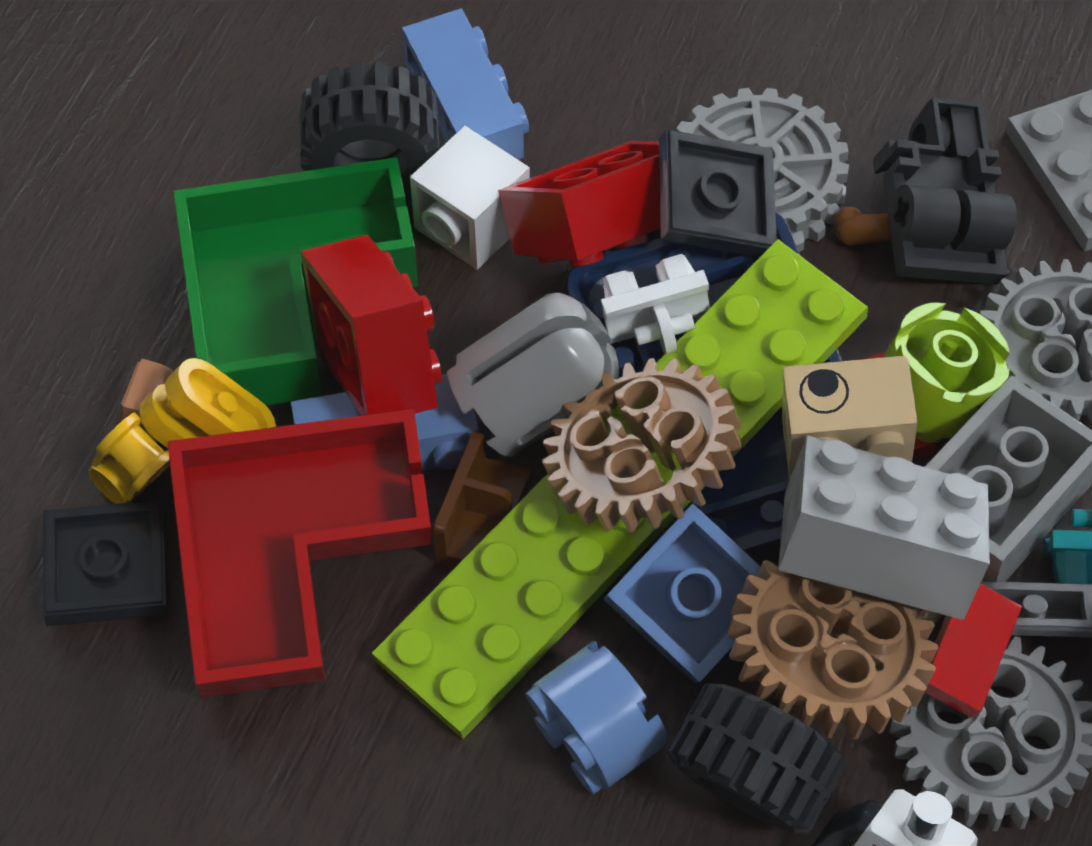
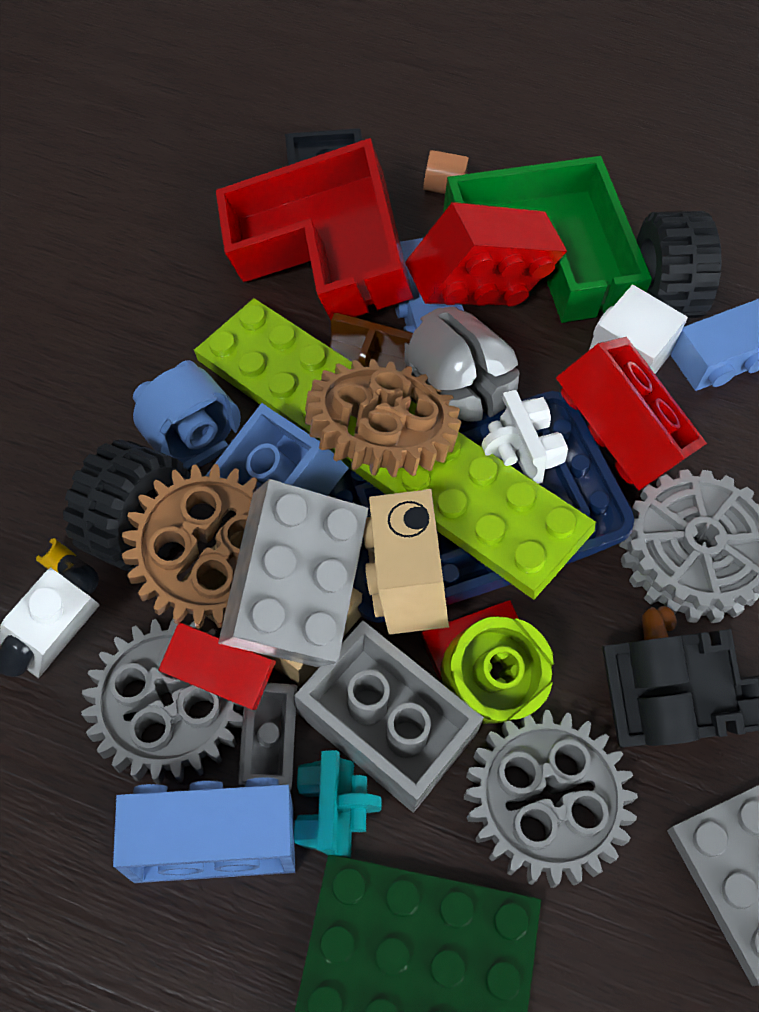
camera: 85 degrees right, 5 degrees up
(127, 462) = (397, 158): yellow piece -> none
(199, 404) = (421, 190): yellow brick -> none
(716, 193) = (633, 472): black plate -> none

